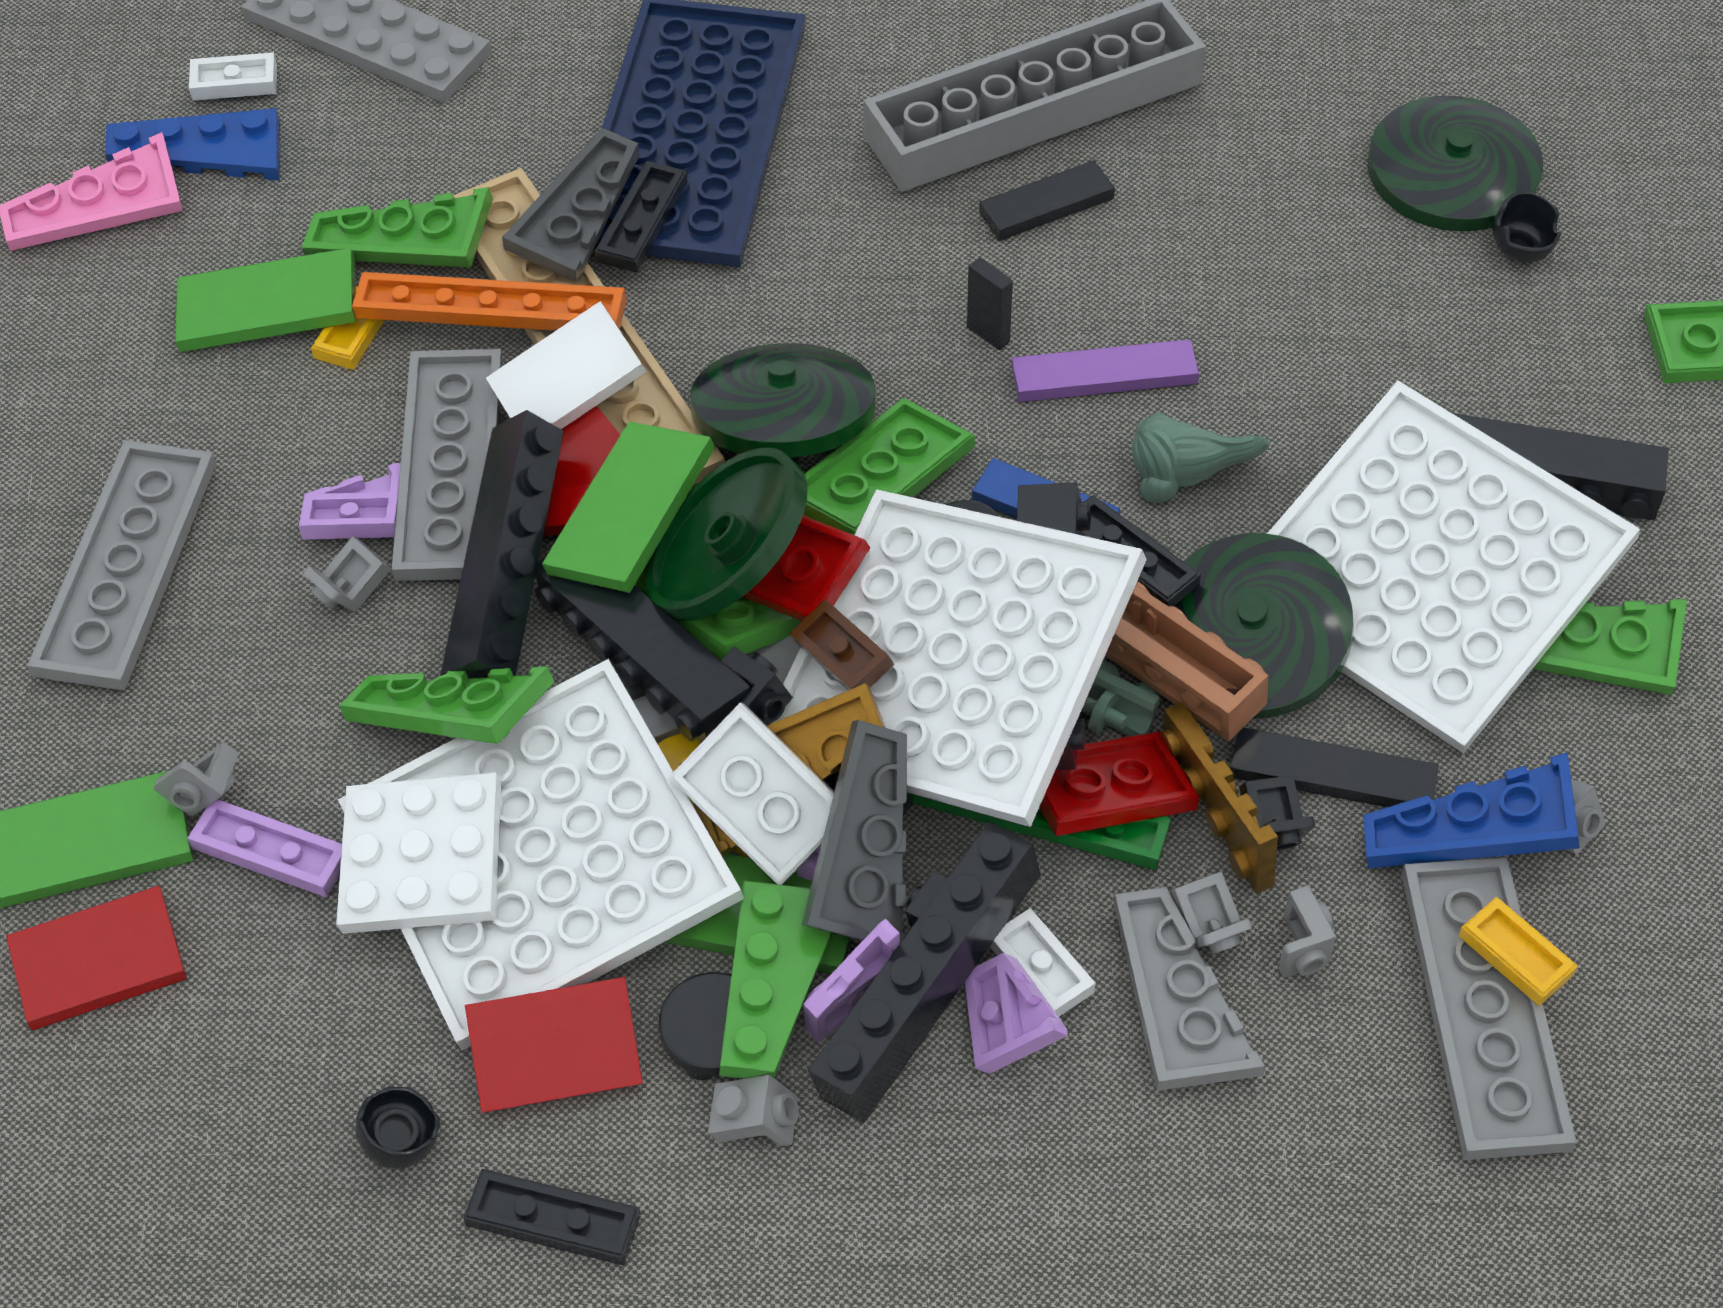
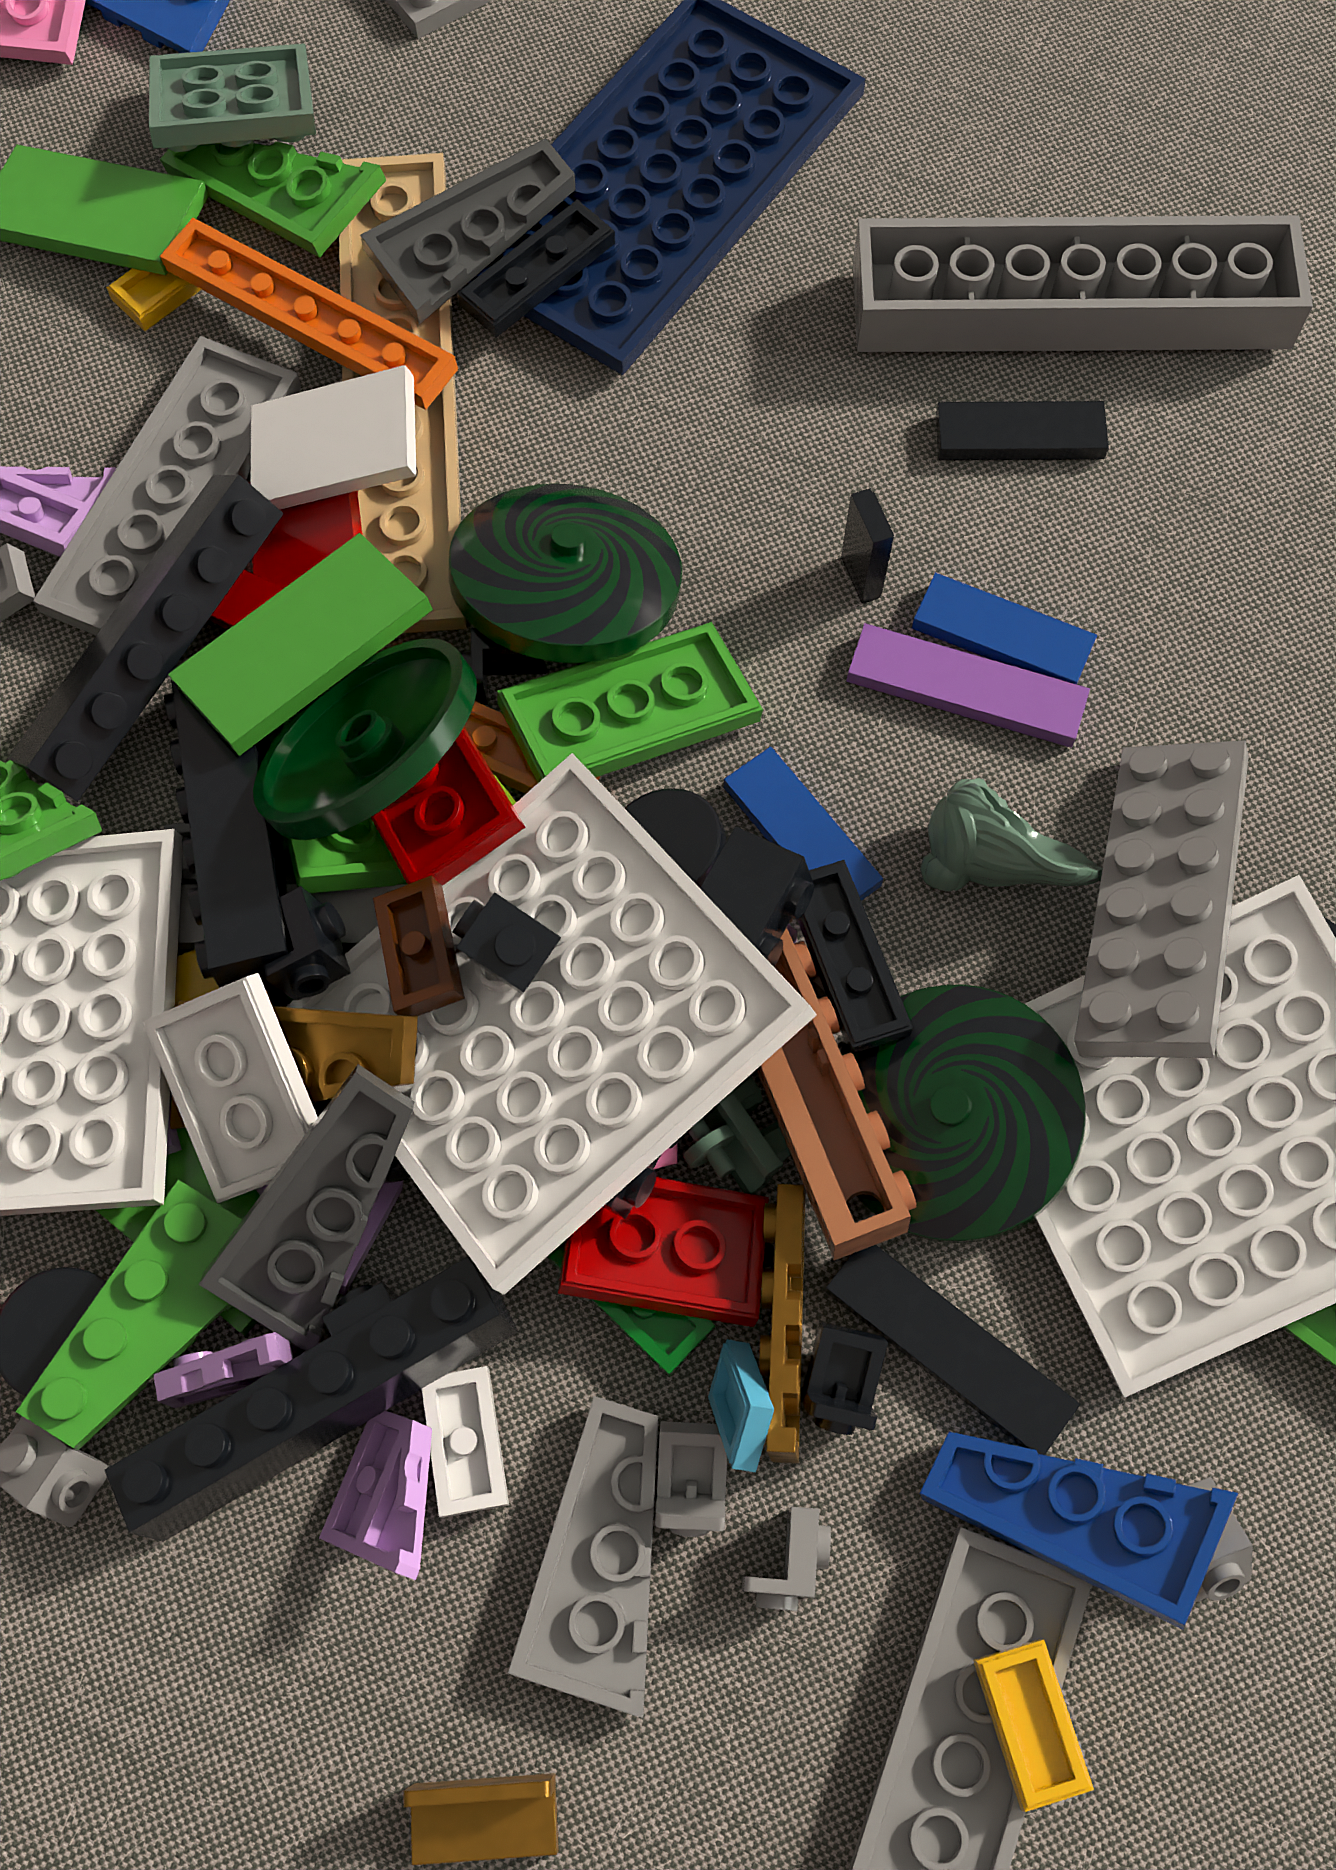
camera: 25 degrees right, 15 degrees up
(338, 183) = (230, 97): none -> sand green plate
(904, 612) = (504, 941): none -> black bracket
(1107, 326) = (1002, 630): none -> blue tile
(1191, 1176) = (483, 1819): none -> pearl gold panel
(1220, 844) = (740, 1405): none -> medium azure tile
(1319, 434) = (1164, 903): none -> light grey plate

